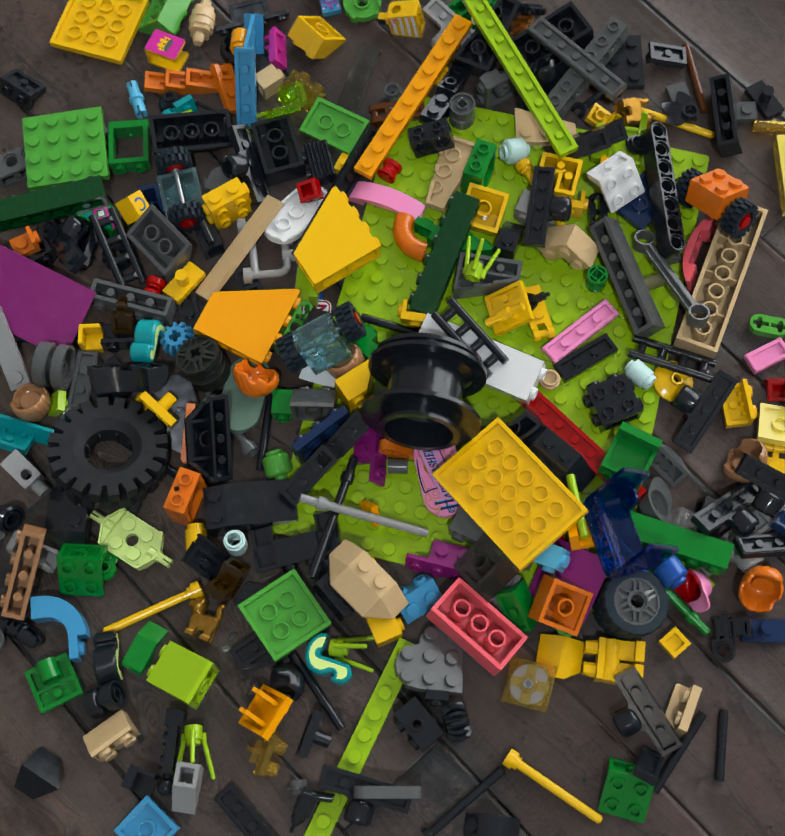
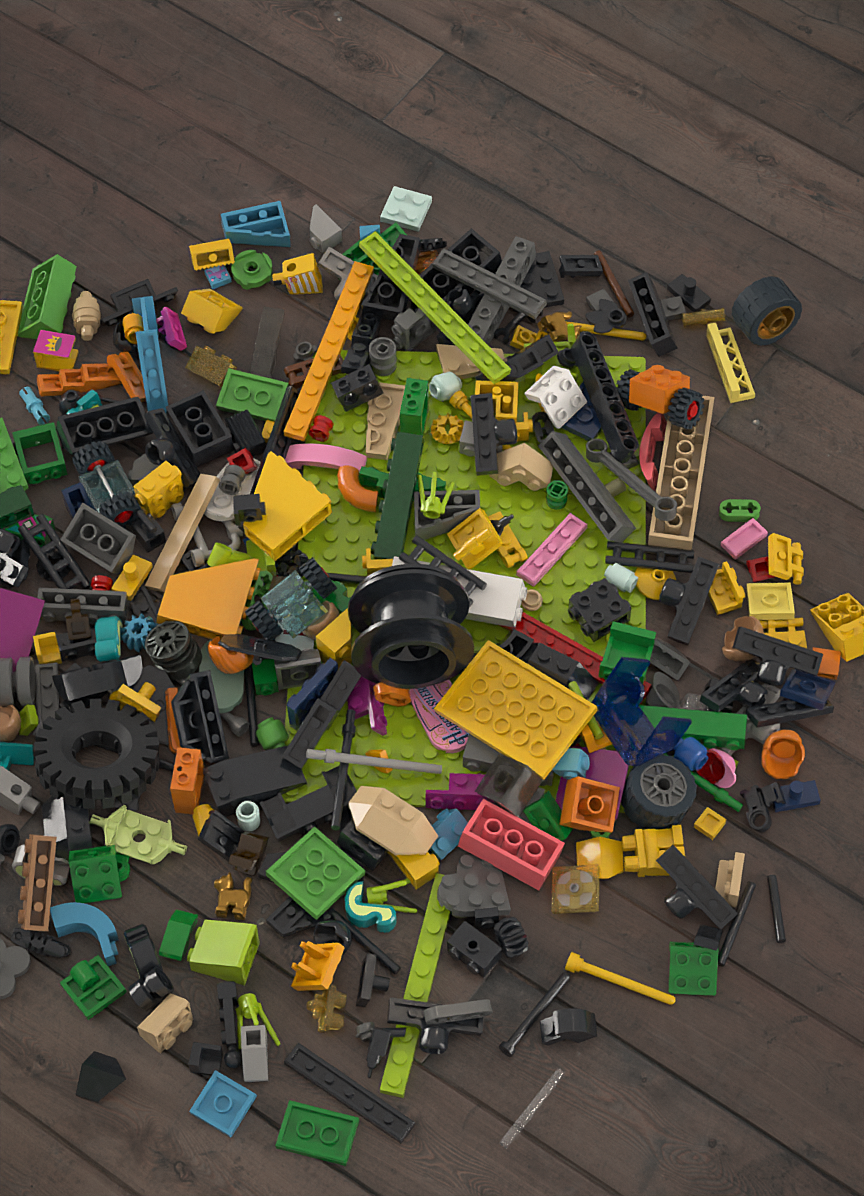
camera: 15 degrees left, 10 degrees down
(132, 207) = (61, 511): yellow brick -> none
(192, 592) = (213, 873): yellow piece -> none
(269, 80) = (173, 362): tan brick -> none
(270, 280) = (223, 555): none -> lime piece
(280, 380) = (260, 648): none -> black shield
(292, 98) = (201, 376): clear neon green bracket -> none
(295, 206) = (232, 479): none -> dark grey wheel
(300, 239) = (248, 508): none -> black brick
(341, 294) = (294, 556): none -> black gear
(397, 466) = (396, 711): dark grey hinge -> none
(491, 209) = (435, 446): yellow slope -> none
(509, 240) = (460, 472): black slope -> none
(515, 187) = (440, 434): none -> yellow gear
(585, 358) = (563, 573): black tile -> none

